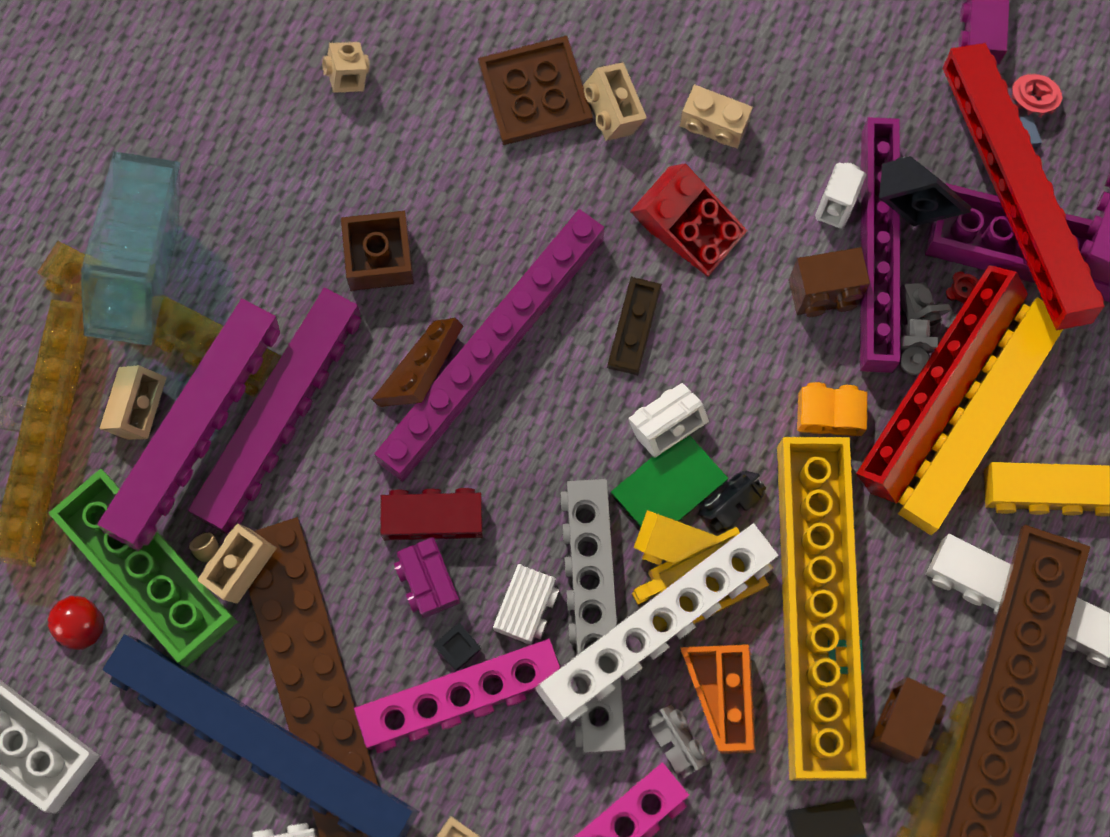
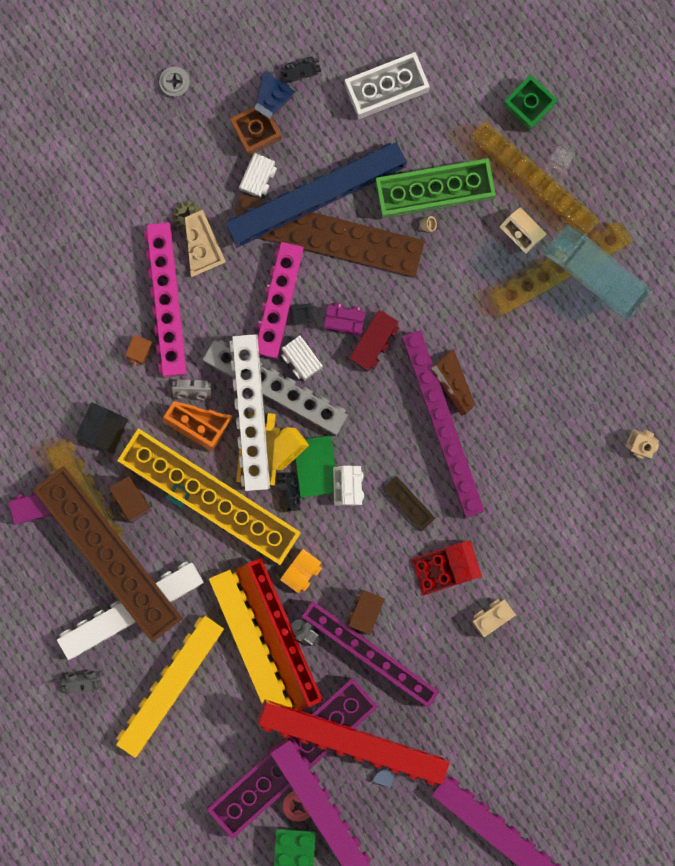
camera: 120 degrees right, 10 degrees up
(75, 622) = (430, 143): red hair -> none
(189, 426) = (489, 249): magenta brick -> none
(236, 564) = (406, 232): tan brick -> none
(275, 412) = (478, 302): magenta brick -> none
(377, 250) = (528, 397): reddish brown brick -> none
(535, 90) = (569, 535): reddish brown plate -> none
(614, 101) = (534, 569): tan brick -> none
(840, 194) = (408, 651): white brick -> none
(918, 193) = (380, 685): black slope -> none
(919, 303) = (326, 653): dark grey bracket -> none
(961, 280) = (323, 679): red plate -> none
(1042, 87) = (401, 806): coral gear -> none

